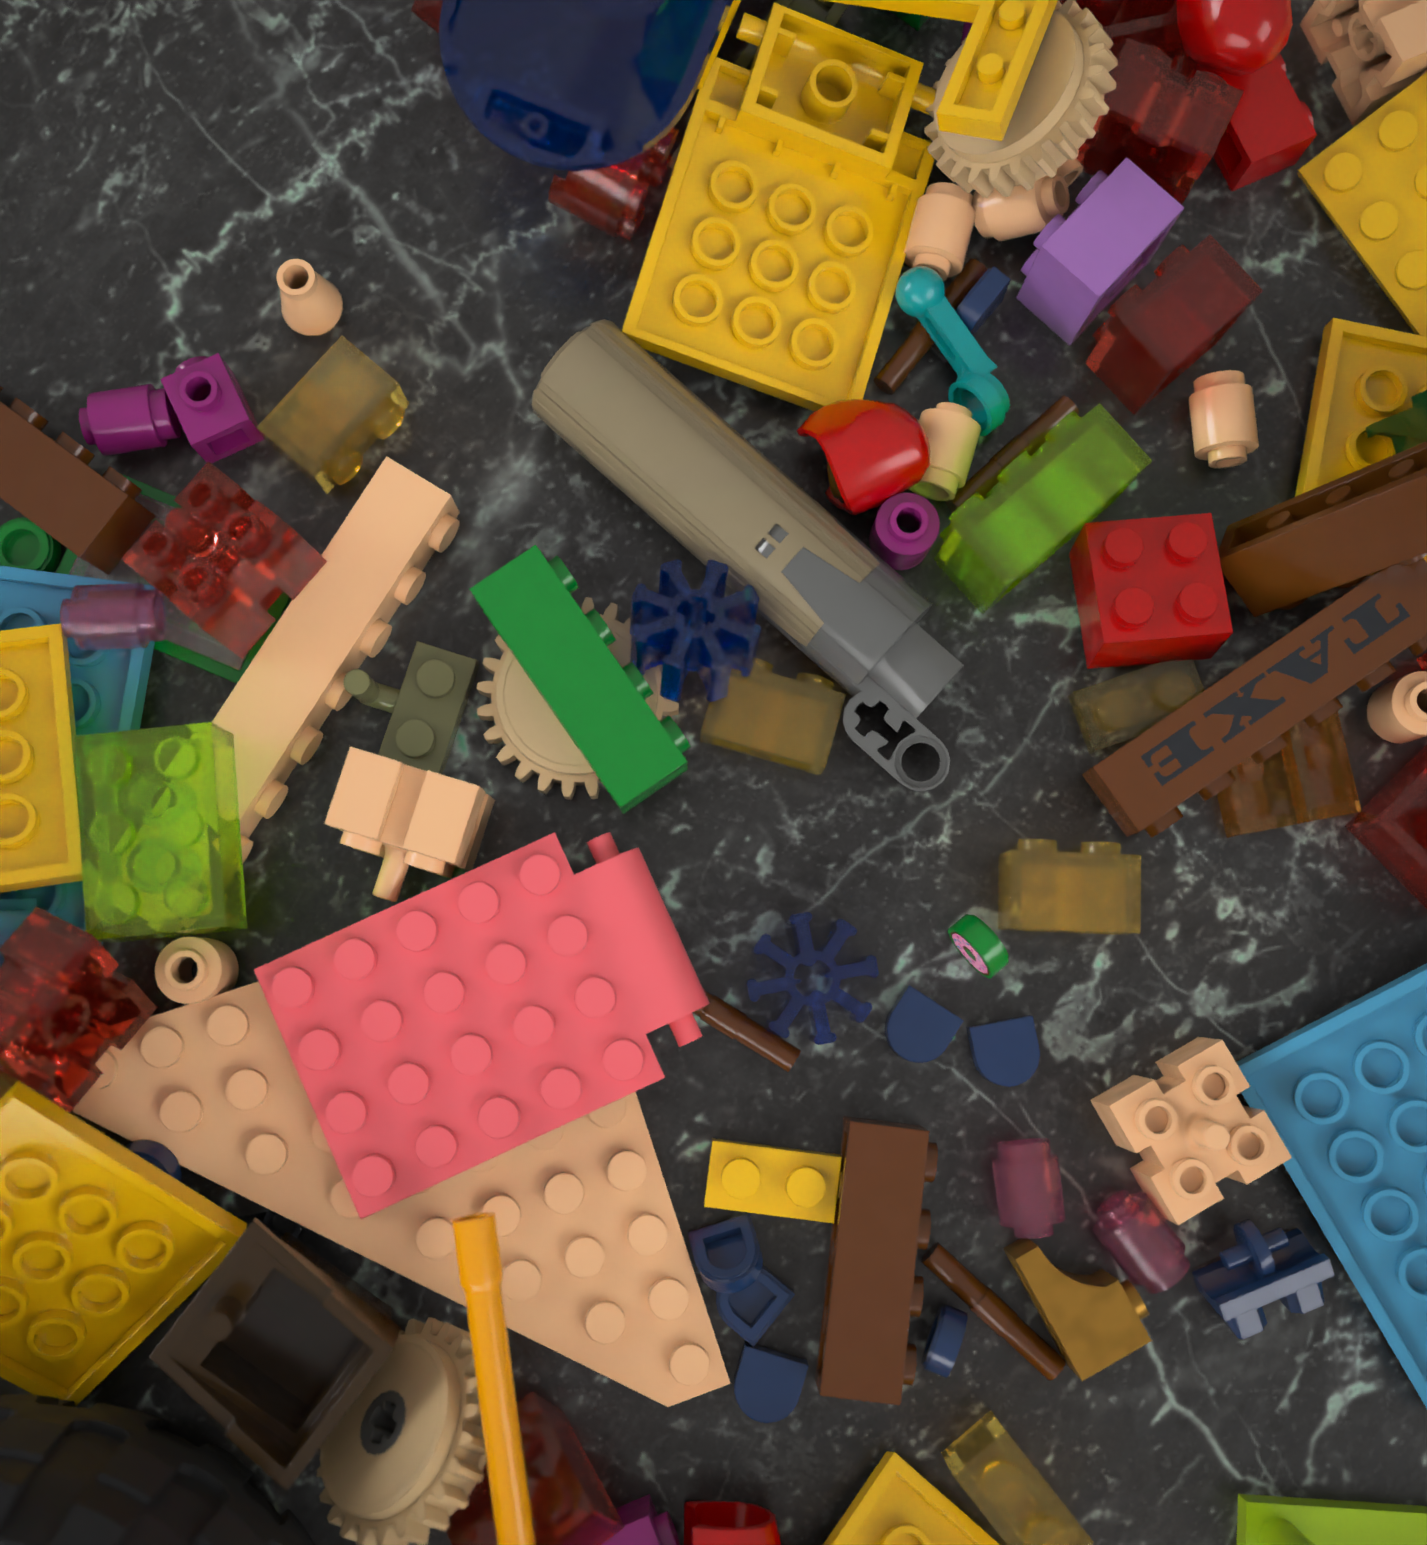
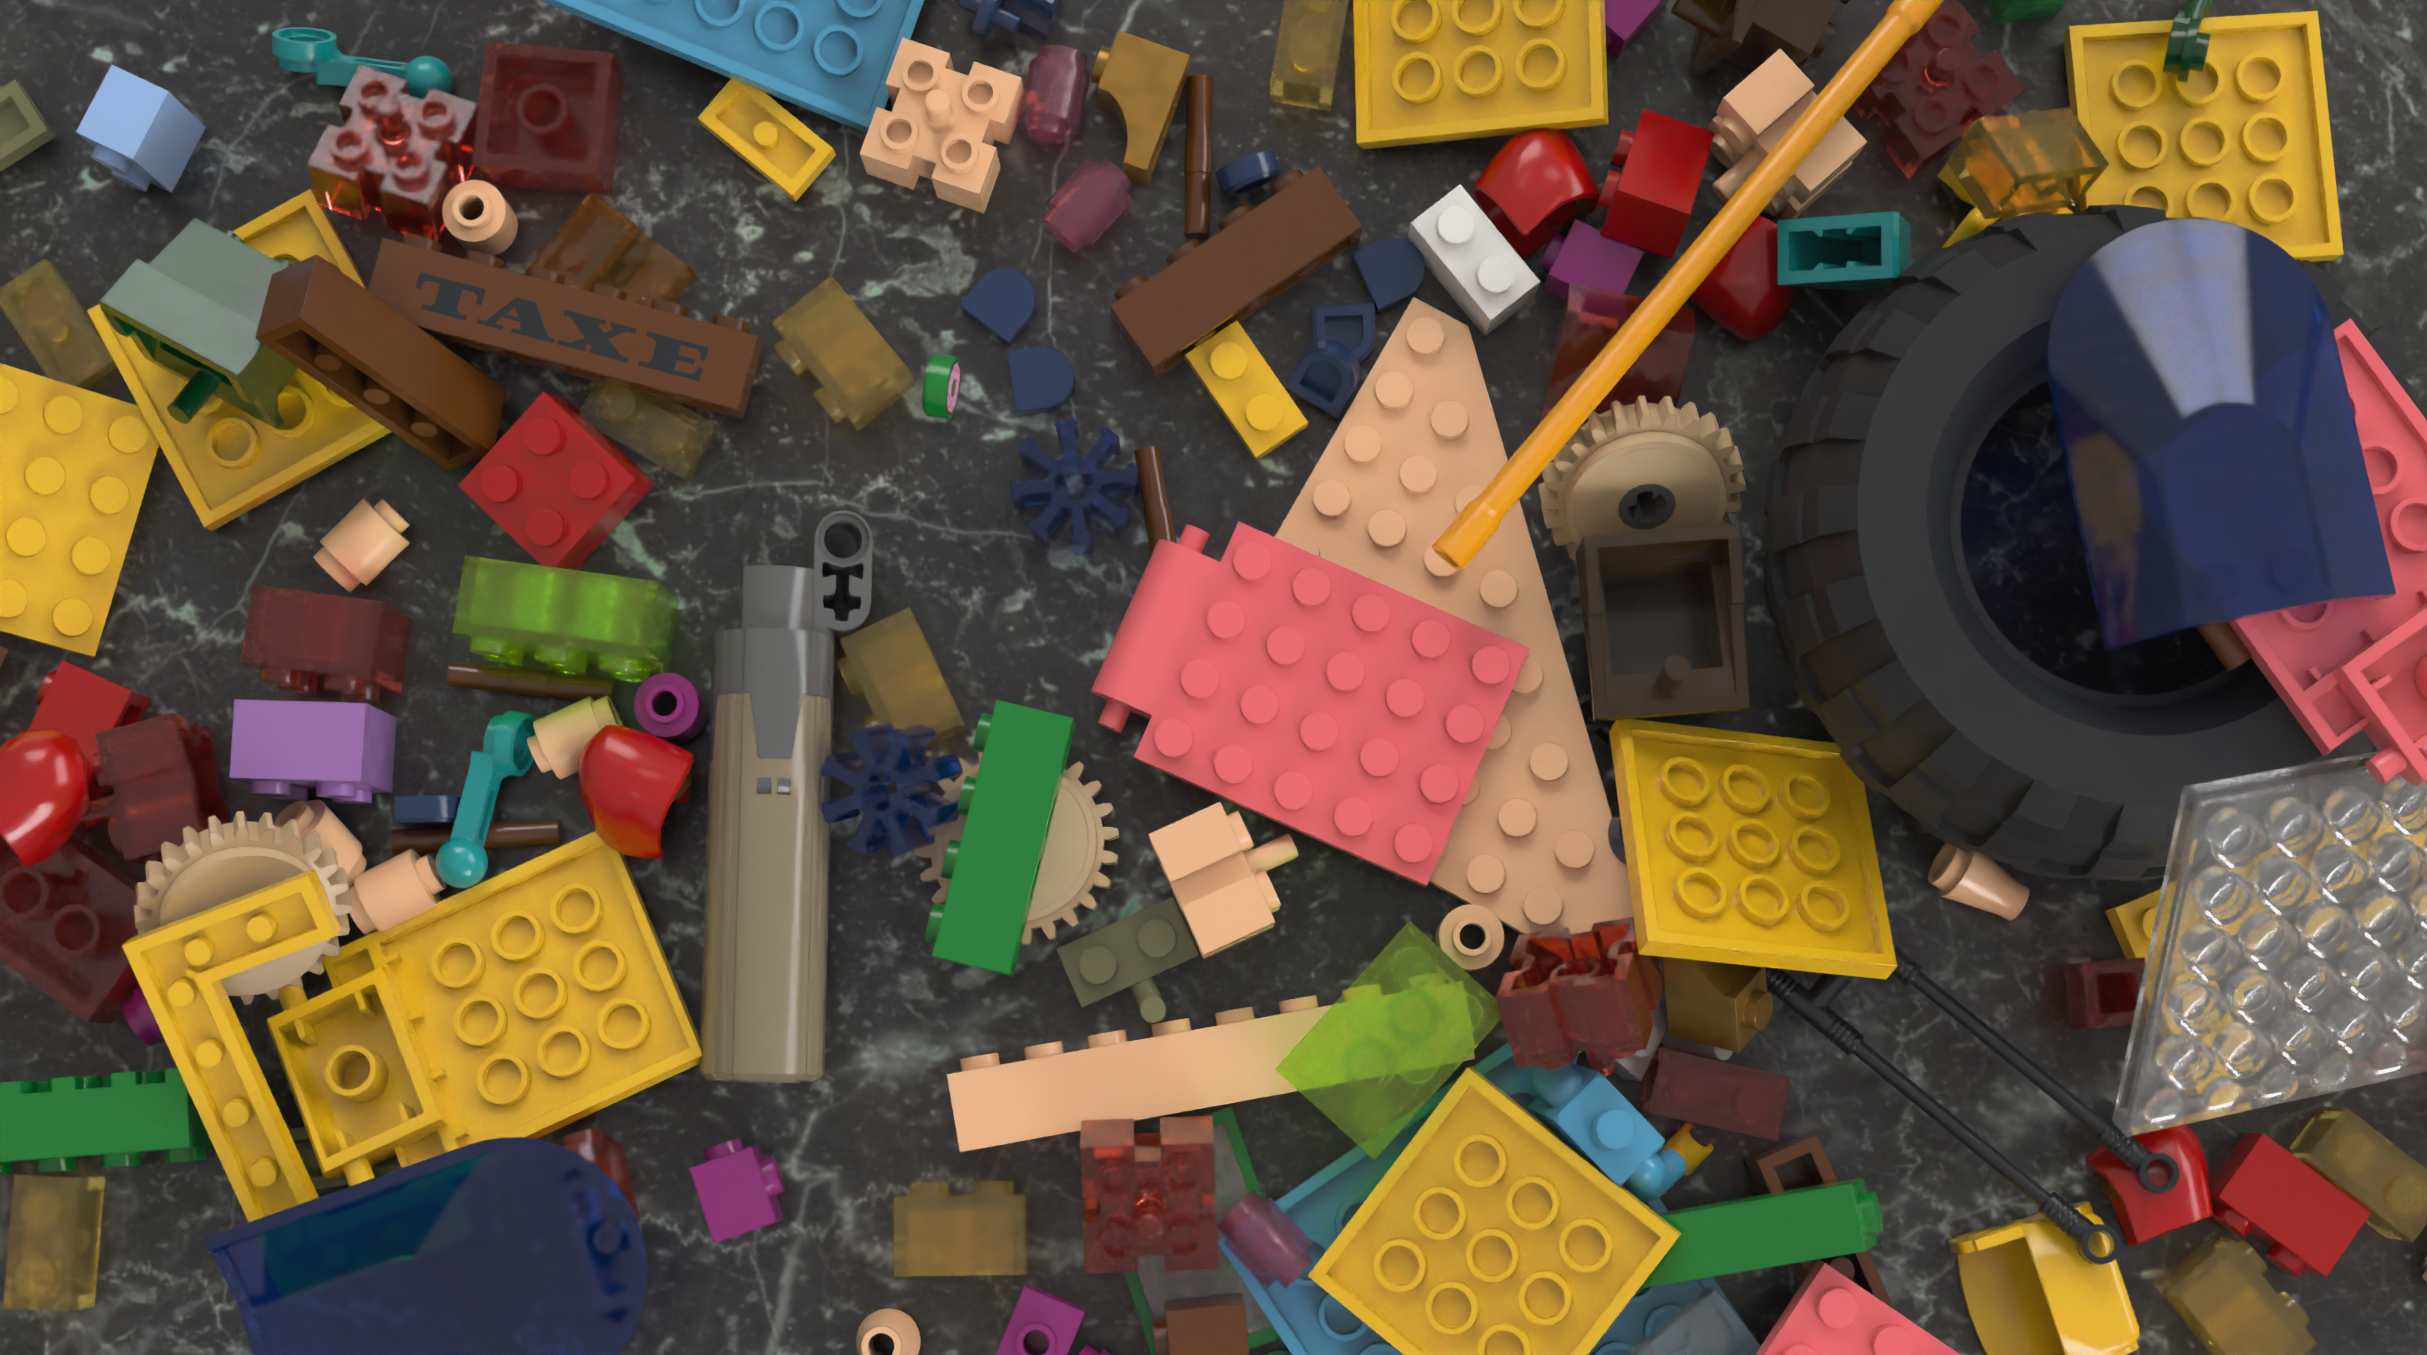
camera: 125 degrees left, 0 degrees up
(509, 287) = (738, 1189): none -> magenta brick
(716, 1461) = (1473, 260): none -> white brick
(1293, 982) = (767, 137): none -> yellow plate

